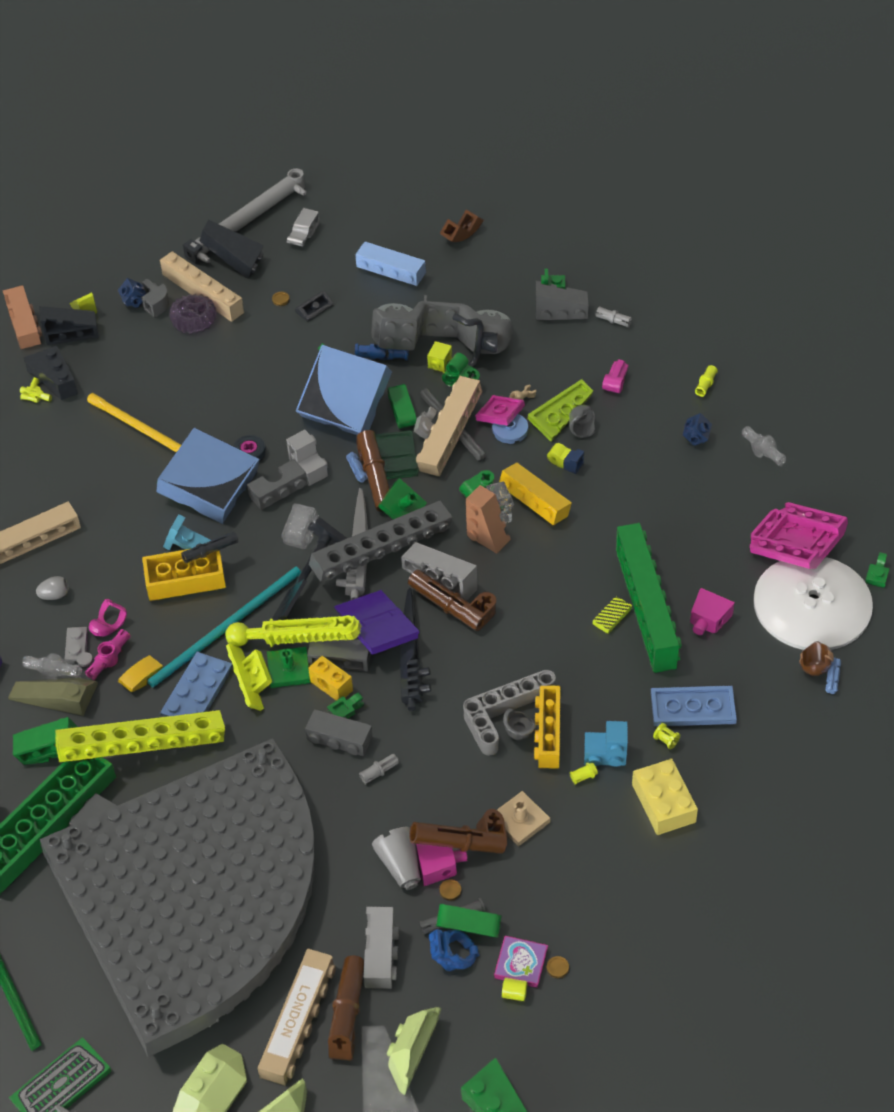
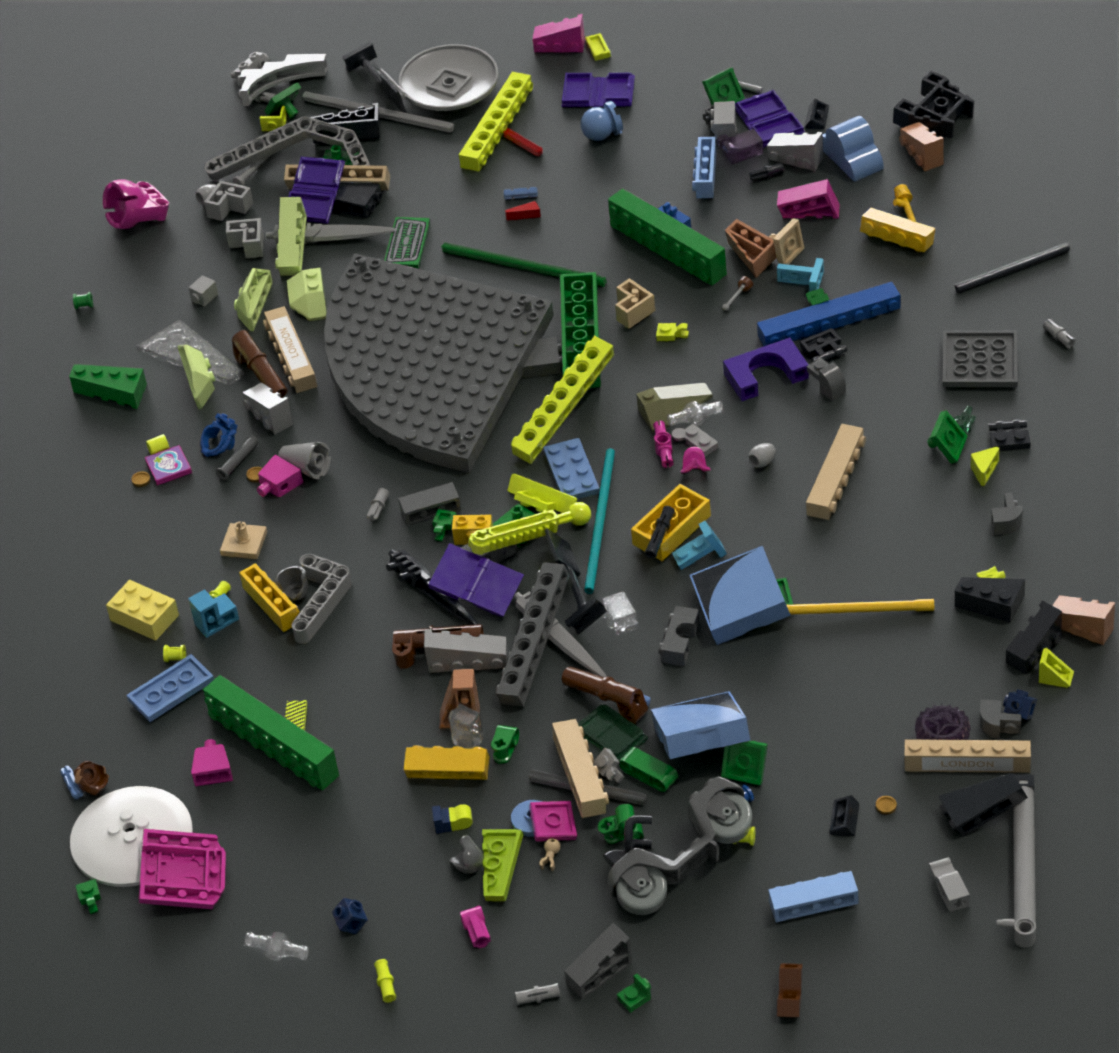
camera: 145 degrees right, 5 degrees down
(39, 742) = (629, 370): green wedge -> none
(137, 675) = (624, 451): yellow slope -> none
(251, 442) = (745, 659): black bush -> none
(303, 450) = (675, 666): light grey brick -> none
(401, 500) = (551, 681): green tile -> none
(439, 356) = (663, 836): neon yellow brick -> none
(464, 837) = (264, 485): reddish brown piece -> none
(468, 920) = (228, 453): green beam -> none

